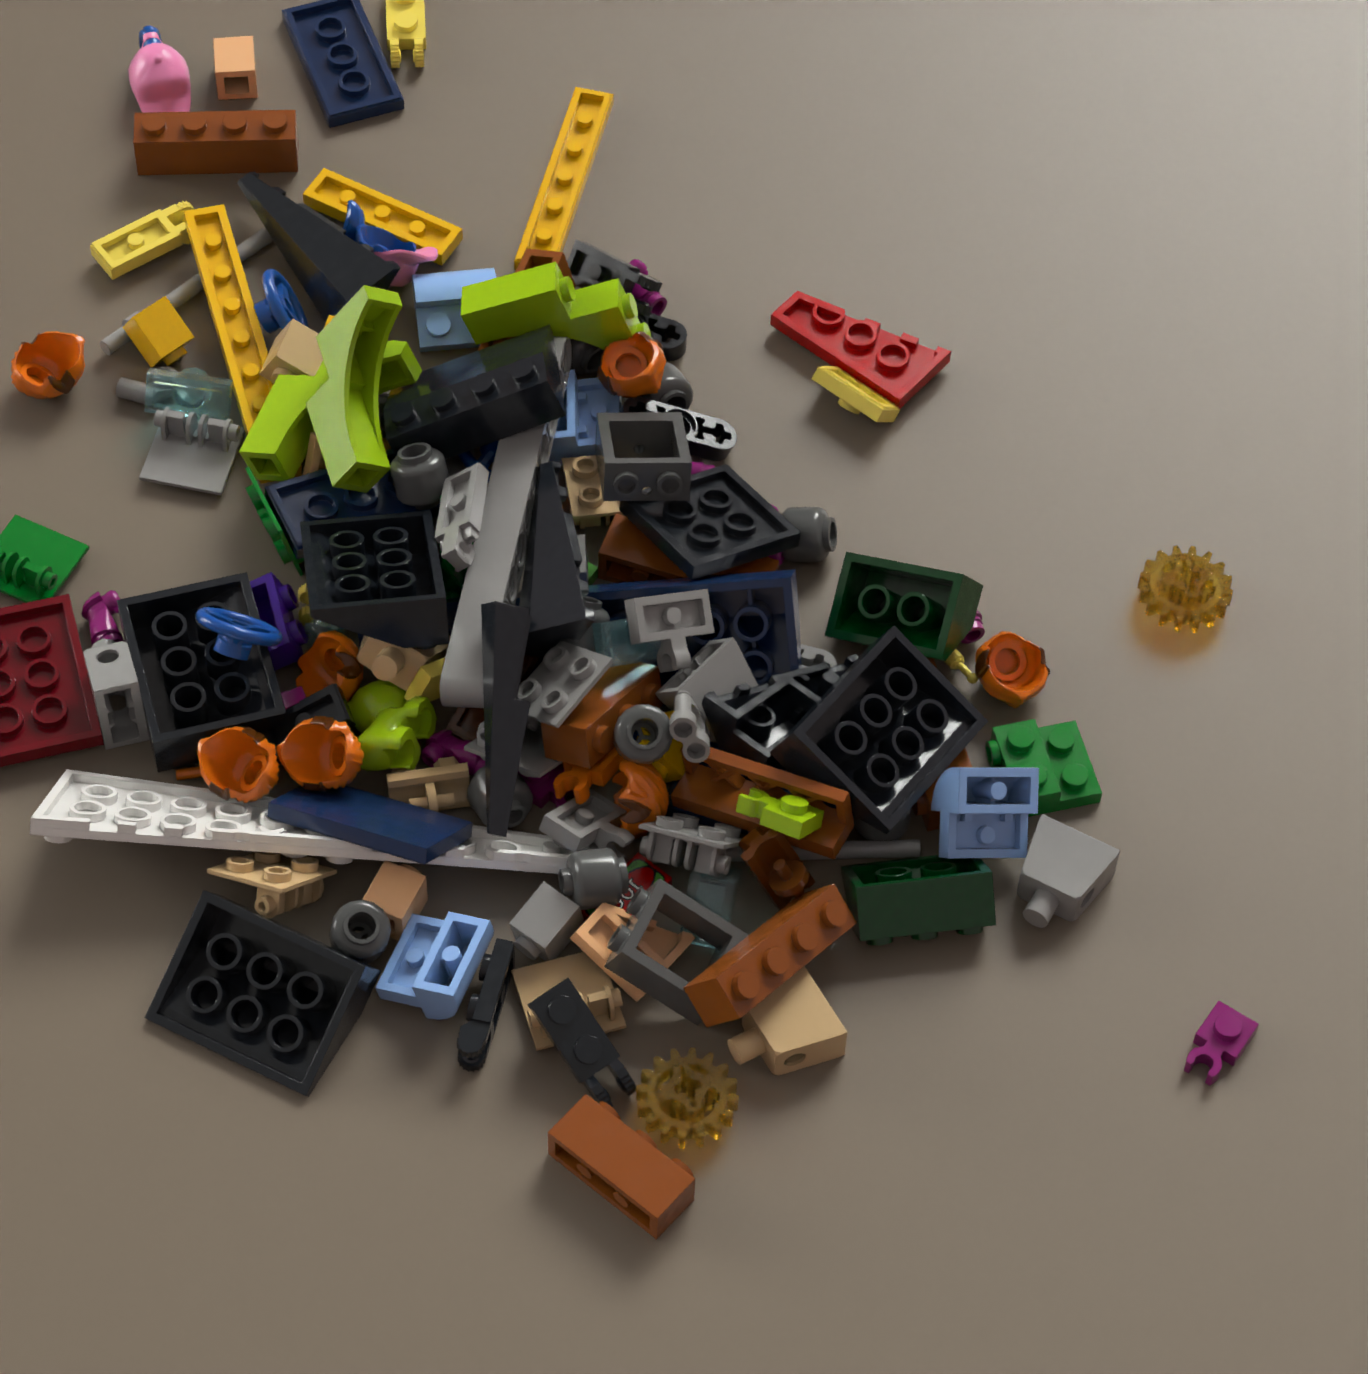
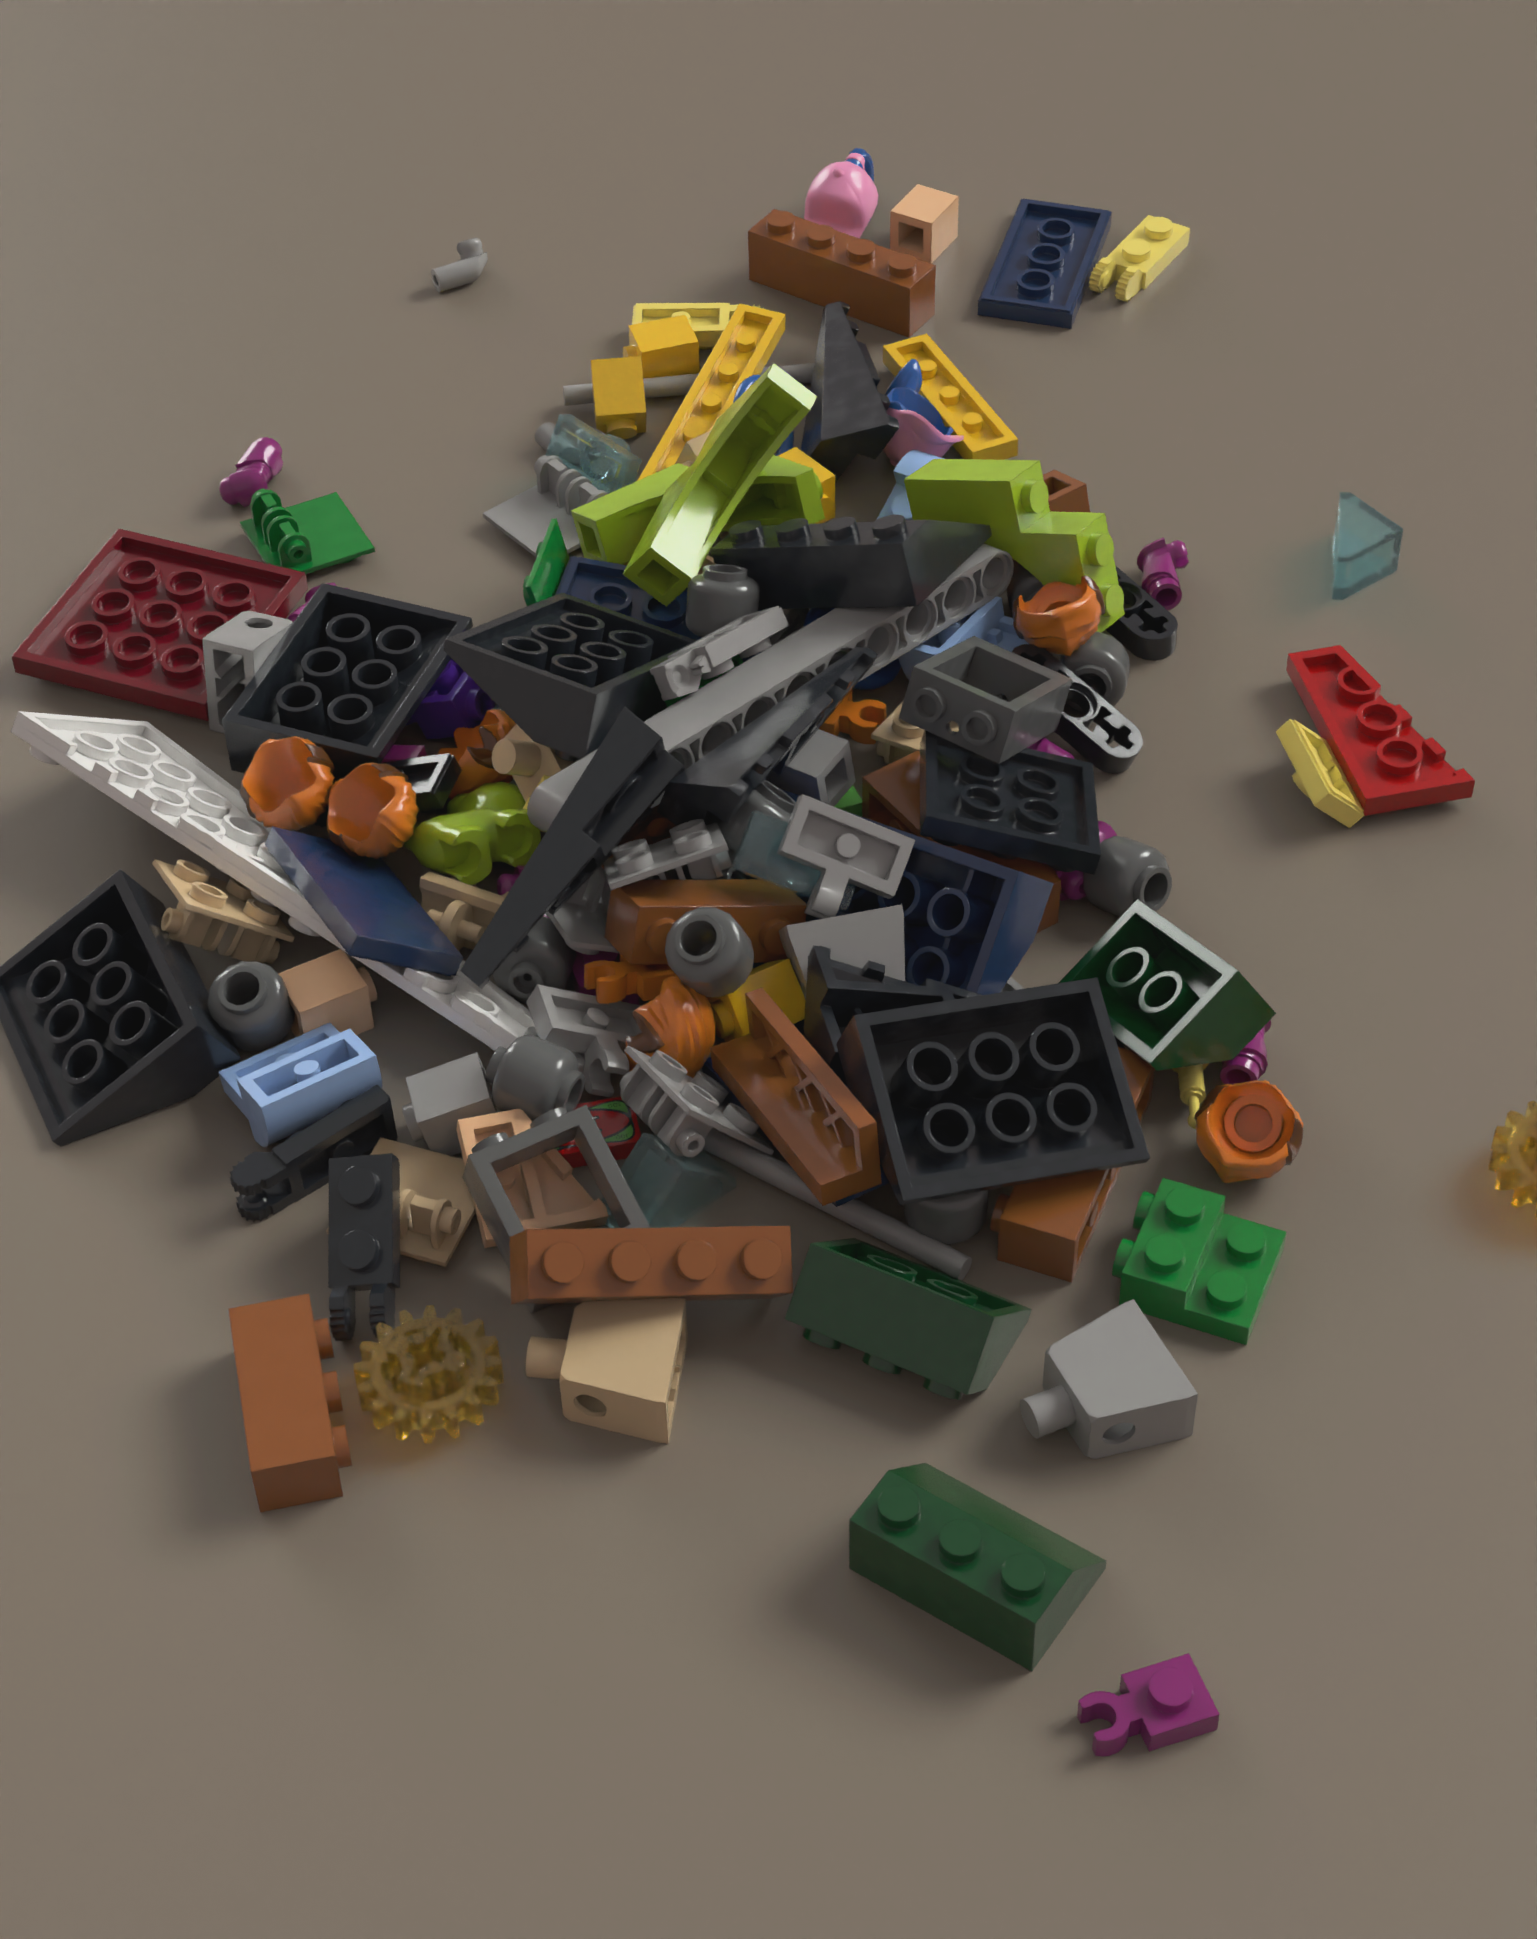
camera: 40 degrees right, 10 degrees down
(48, 364) = (488, 382): orange hair -> none
(149, 275) = (665, 347): none -> yellow brick
(237, 631) = (389, 650): blue piece -> none
(567, 172) = (1190, 444): yellow tile -> none
(593, 266) = (1135, 541): black hinge -> none
(688, 727) = (751, 962): light grey piece -> none
(745, 203) = (1364, 546): none -> clear light blue slope
(775, 865) = (754, 1177): reddish brown hips -> none
(786, 815) = (792, 1116): lime plate -> none
(985, 811) = (1053, 1251): light blue brick -> none
(1071, 1019) = (970, 1561): none -> dark green slope

